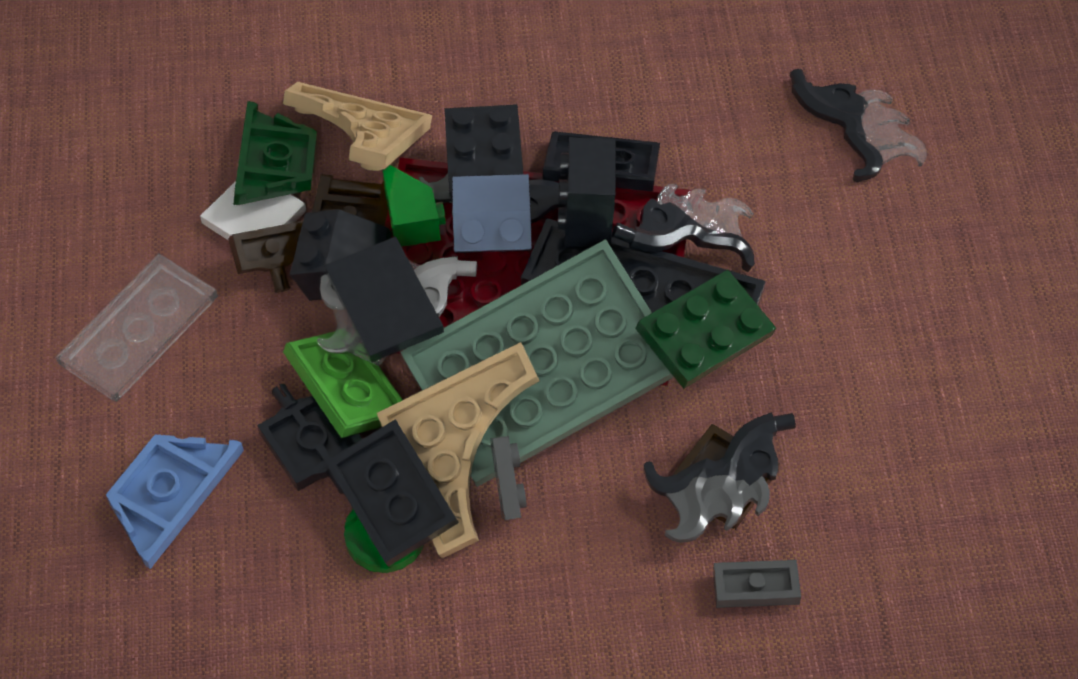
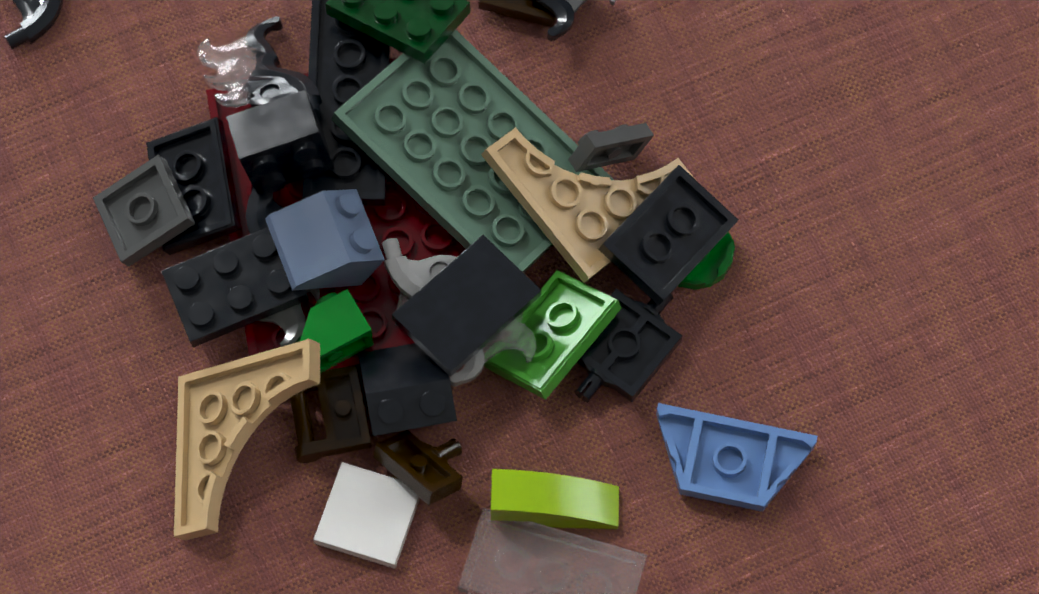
camera: 110 degrees left, 10 degrees up
(195, 338) = (553, 500): none -> lime slope
(273, 157) = (293, 513): dark green wing -> none
(589, 117) = (143, 210): none -> dark grey plate

